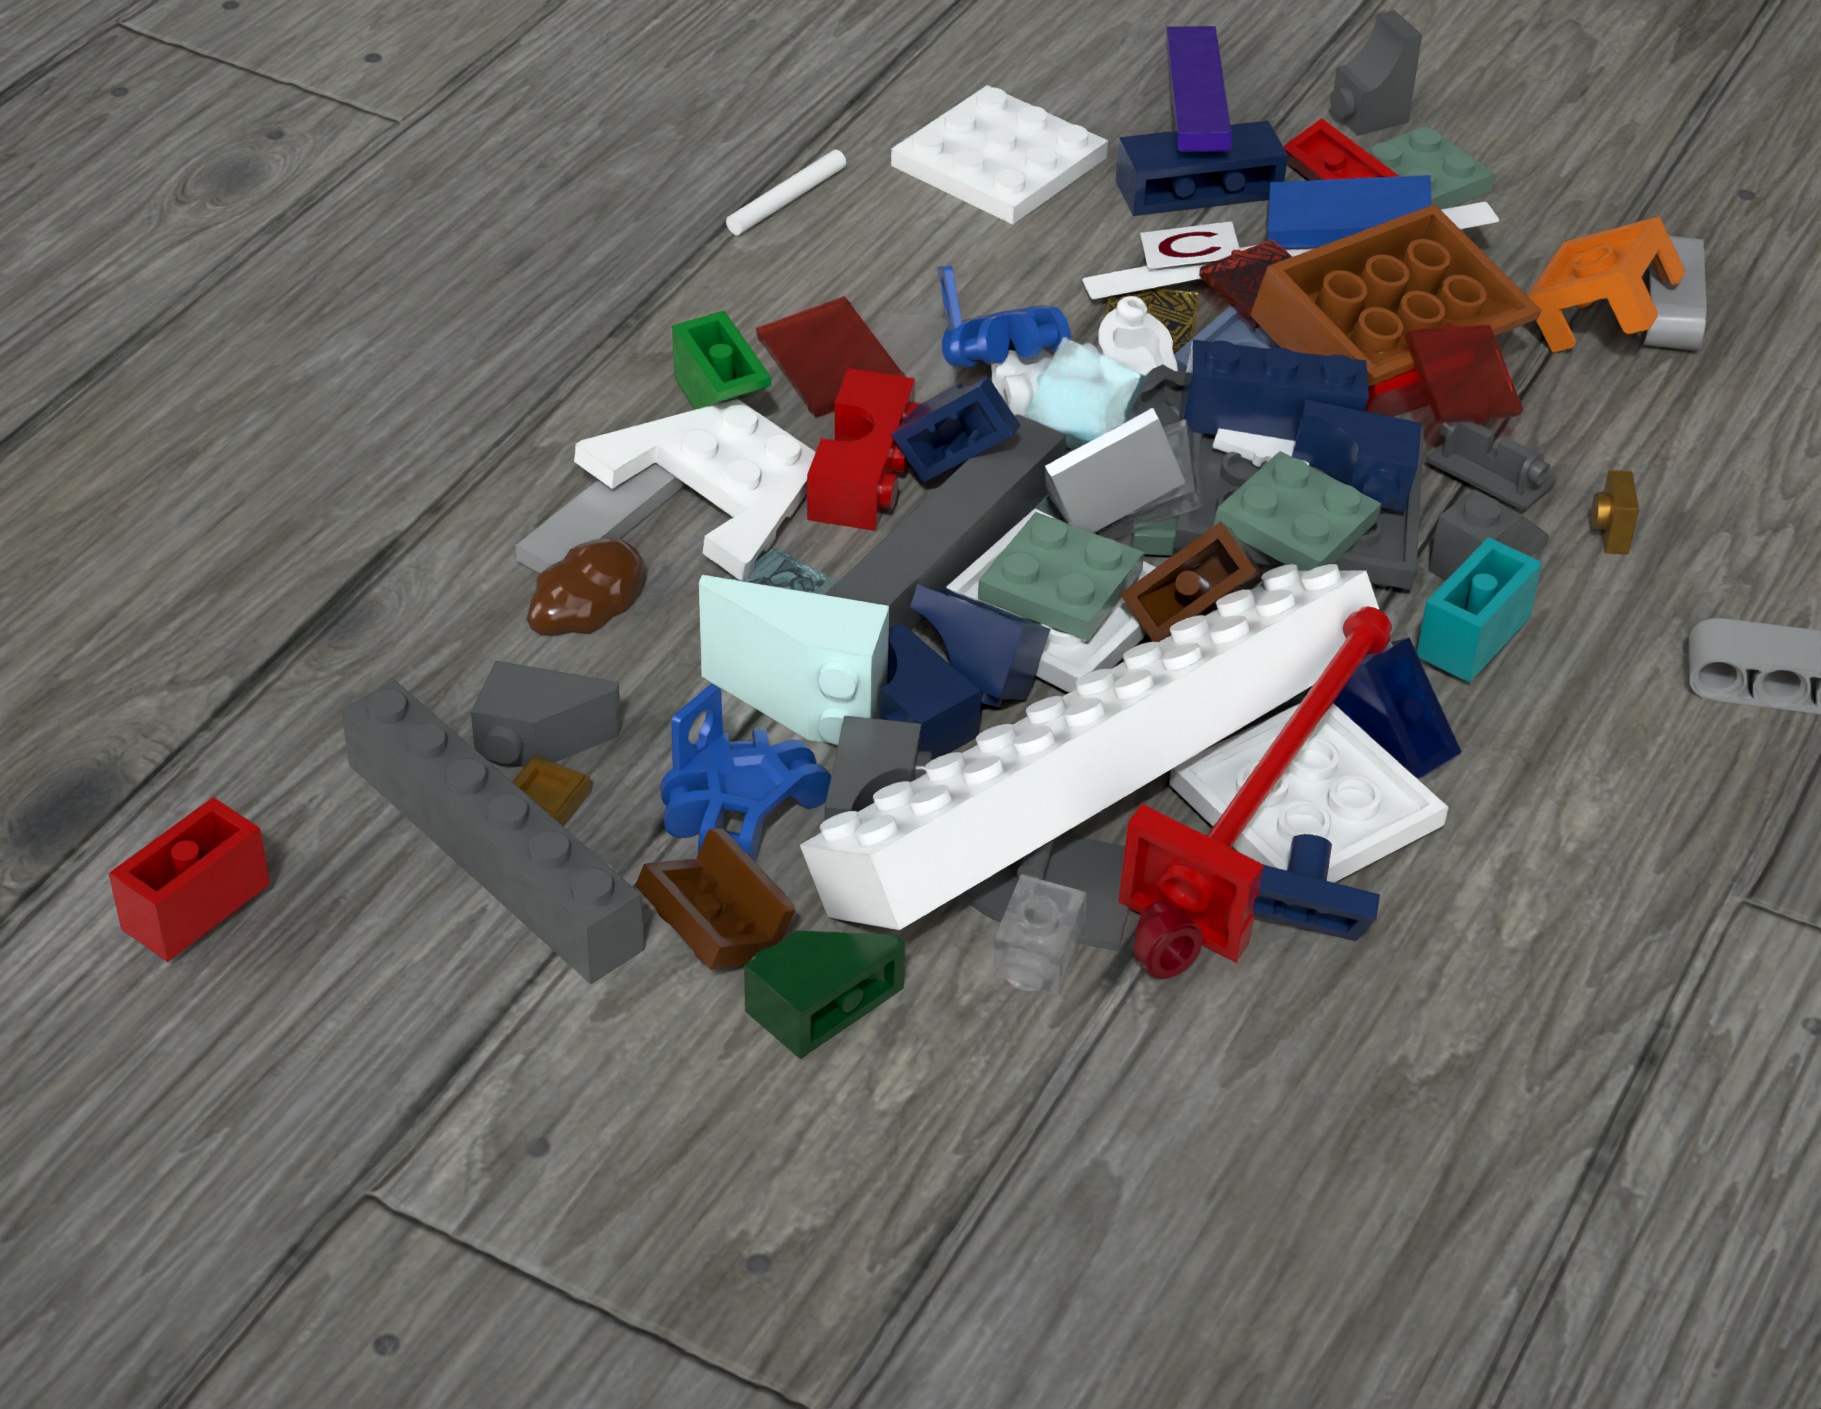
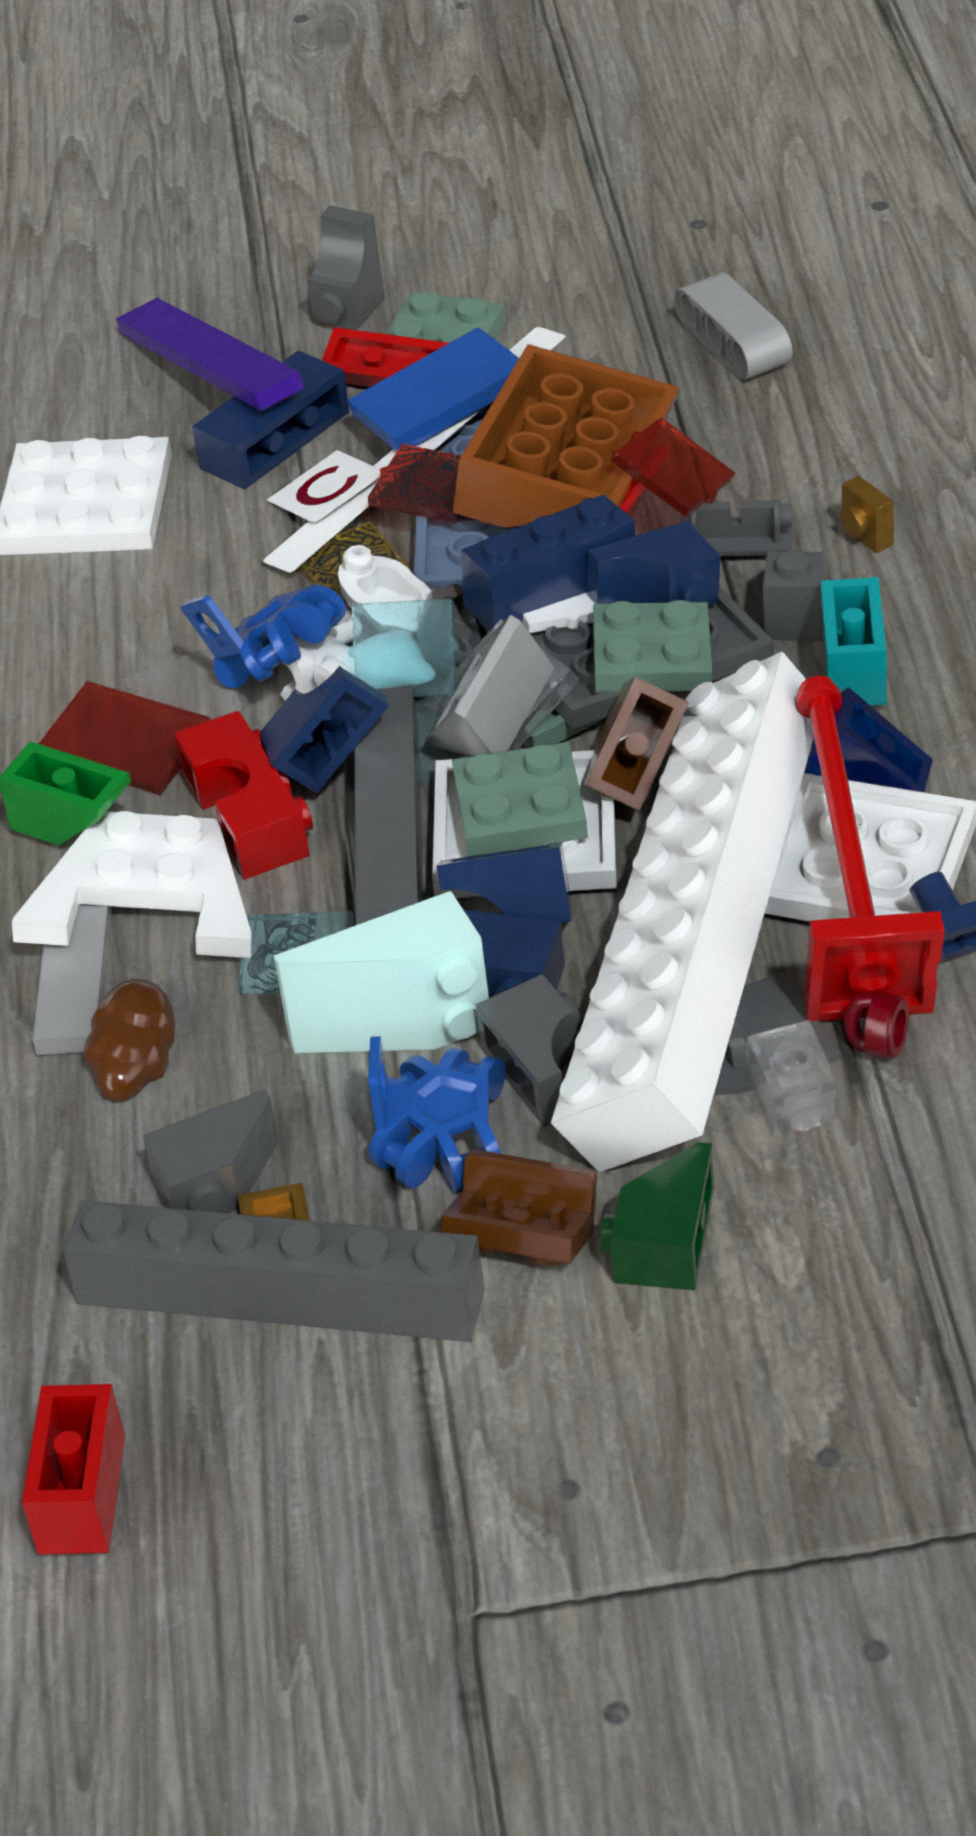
camera: 30 degrees left, 0 degrees up
(1609, 268) = (689, 330): orange panel -> none

